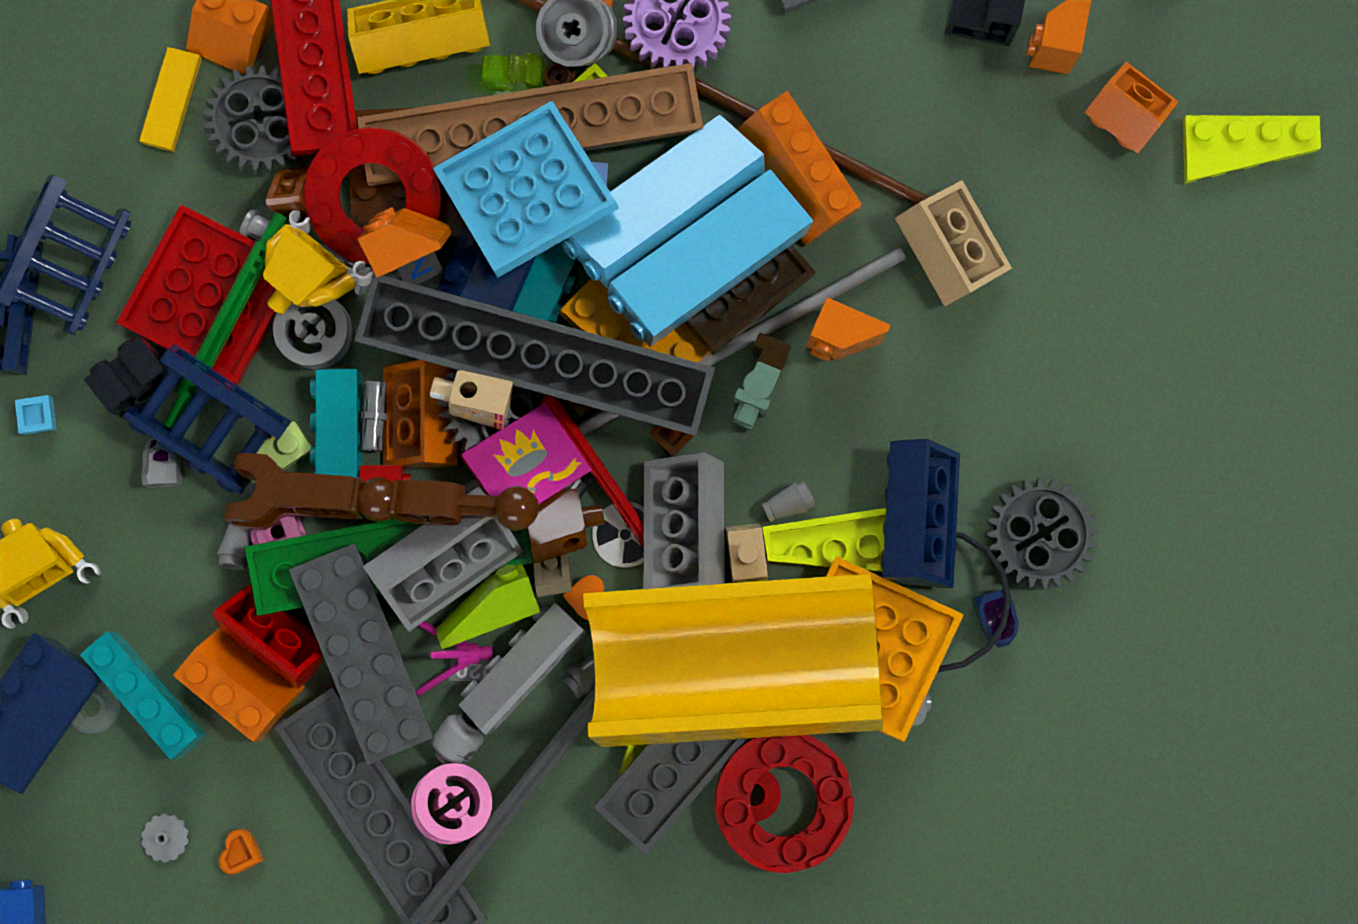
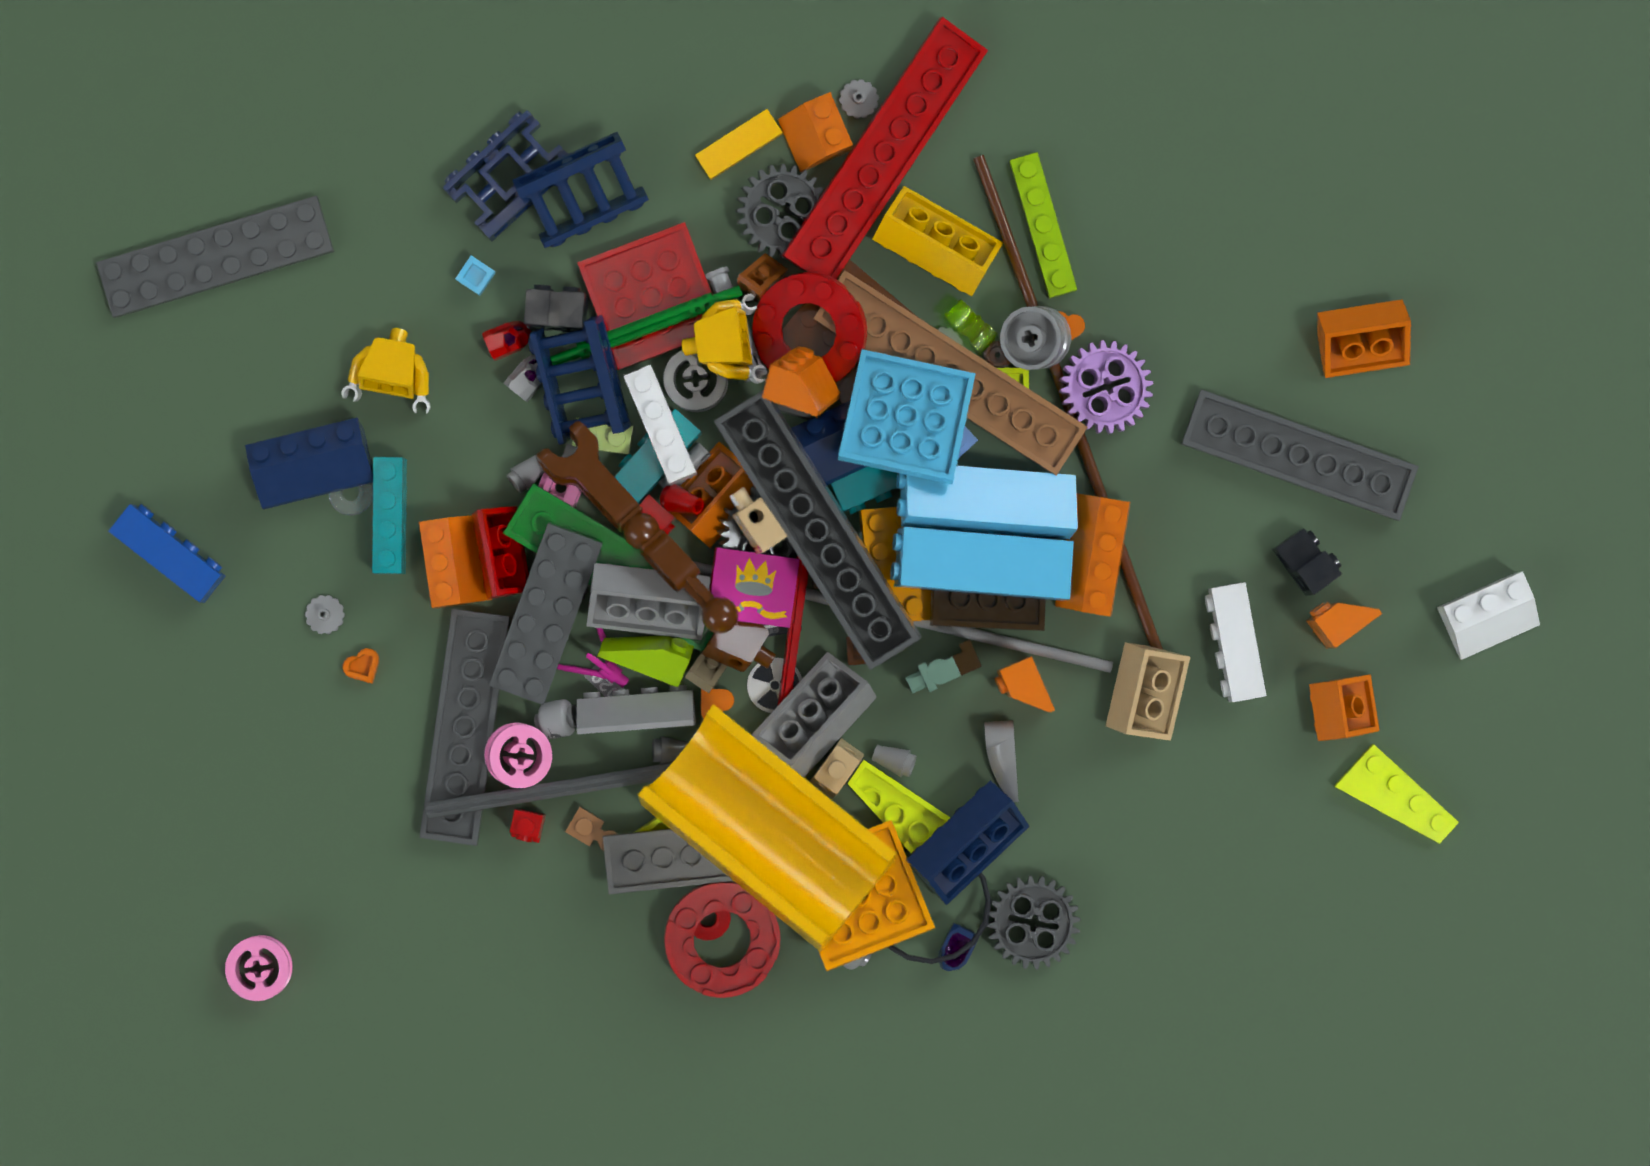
camera: 40 degrees right, 5 degrees up
(113, 446) = (506, 339): none -> red rock
(313, 392) = (660, 425): none -> white brick
(392, 444) = (679, 500): none -> red cone
(517, 860) = (527, 825): none -> red brick
(573, 812) = (587, 828): none -> medium nougat plate
(878, 411) = (1002, 756): none -> light grey piece
(988, 134) = (1236, 642): none -> white brick

